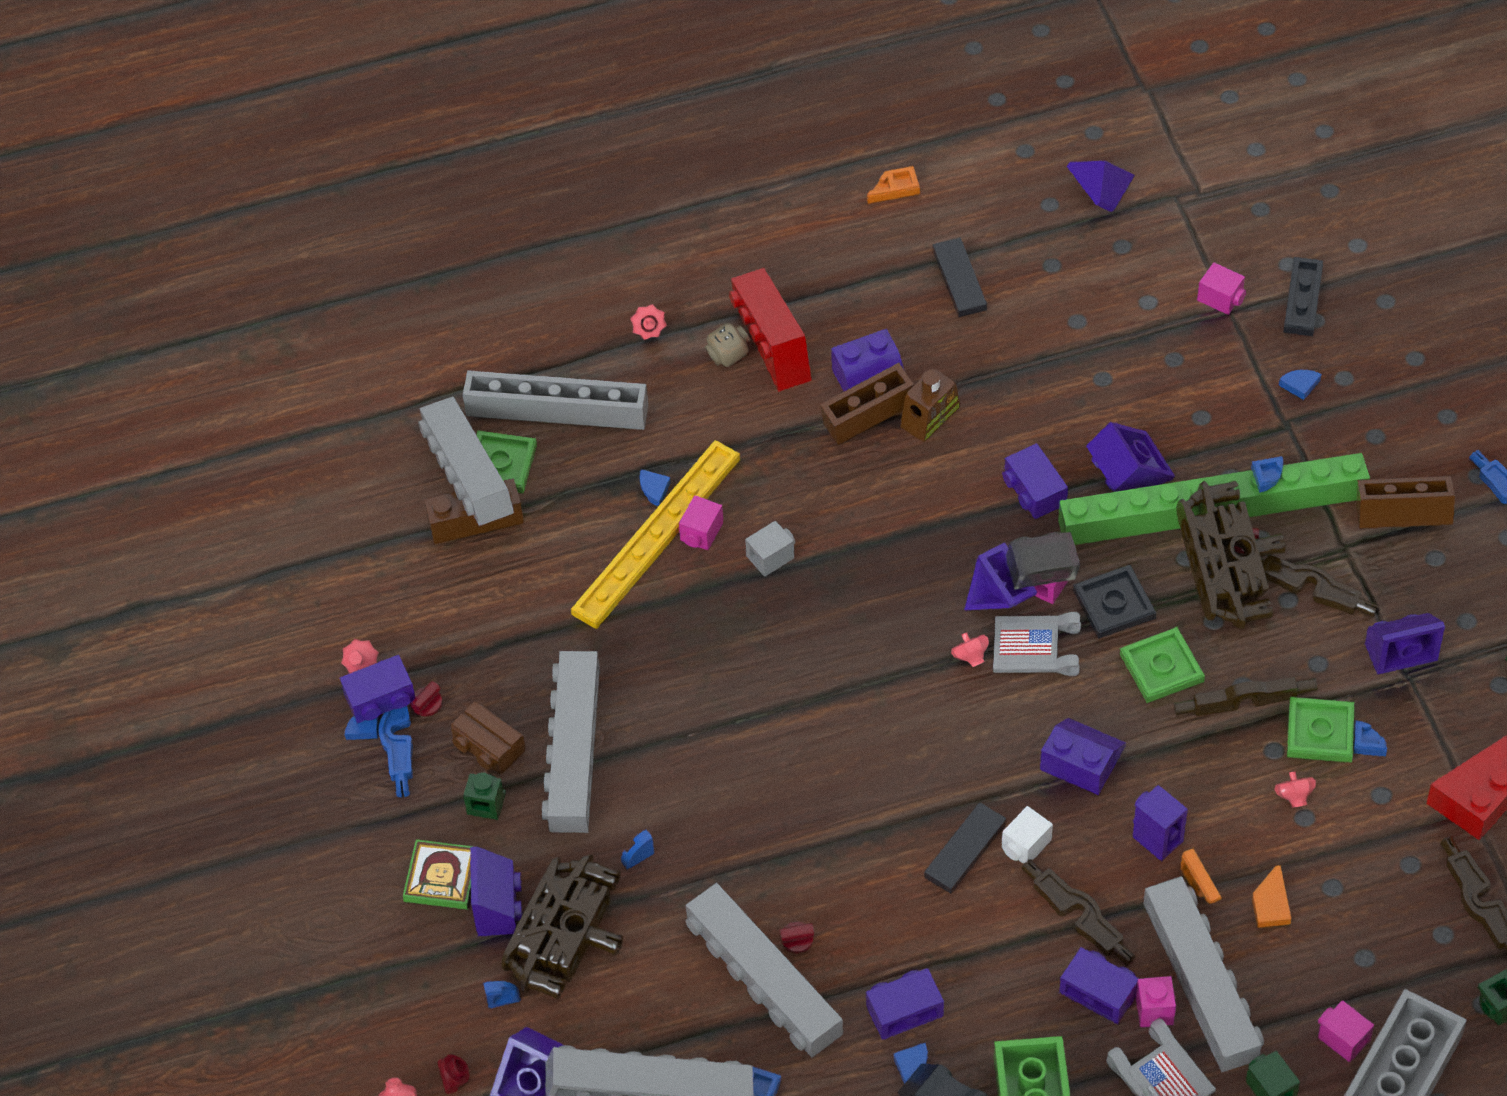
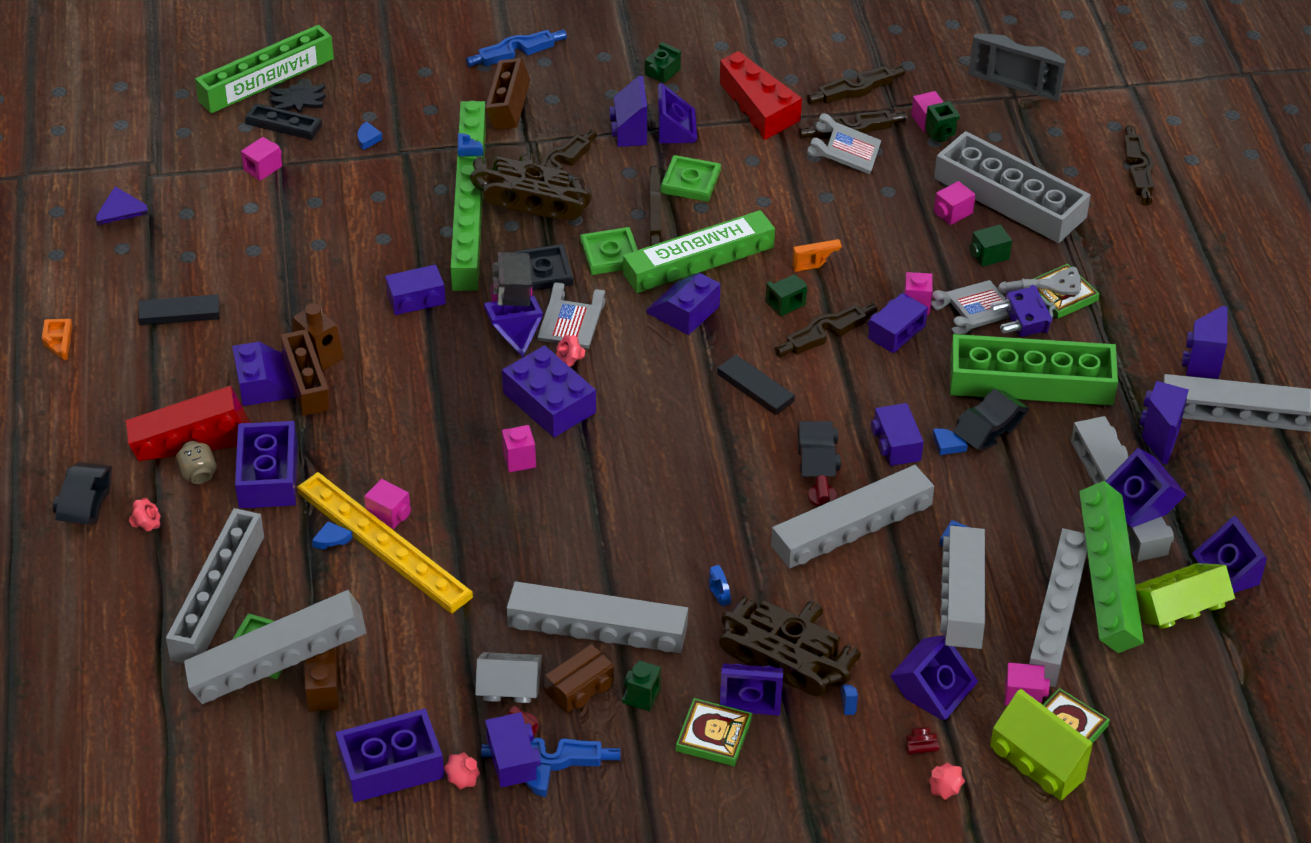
camera: 85 degrees left, 10 degrees down
(362, 589) = (390, 755): none -> dark purple brick
(486, 673) = (508, 676): none -> light grey slope
(664, 262) = (83, 493): none -> black brick
(729, 402) = (266, 464): none -> dark purple brick
(770, 548) = (430, 461): light grey brick -> none
(802, 625) = (519, 448): none -> dark pink brick
(860, 919) = (817, 448): none -> black brick
(897, 638) = (549, 391): none -> dark purple brick
(1026, 836) = (756, 343): white brick -> none
(1121, 858) = (786, 295): none -> dark green brick
(1128, 458) = (414, 234): dark purple slope -> none
(1159, 822) = (767, 259): dark purple brick -> none
(1175, 755) = (698, 251): none -> bright green brick
(1203, 974) = (888, 266): light grey brick -> none
(1271, 901) = (834, 225): orange tile -> none
(1296, 789) = (744, 194): coral piece -> none
(1352, 300) = (298, 97): none -> black piece
(1368, 741) = (709, 154): blue tile -> none
(1377, 252) = (264, 68): none -> bright green brick
(1423, 689) = (675, 118): none -> dark purple slope
(1428, 899) = (845, 145): none -> light grey flag

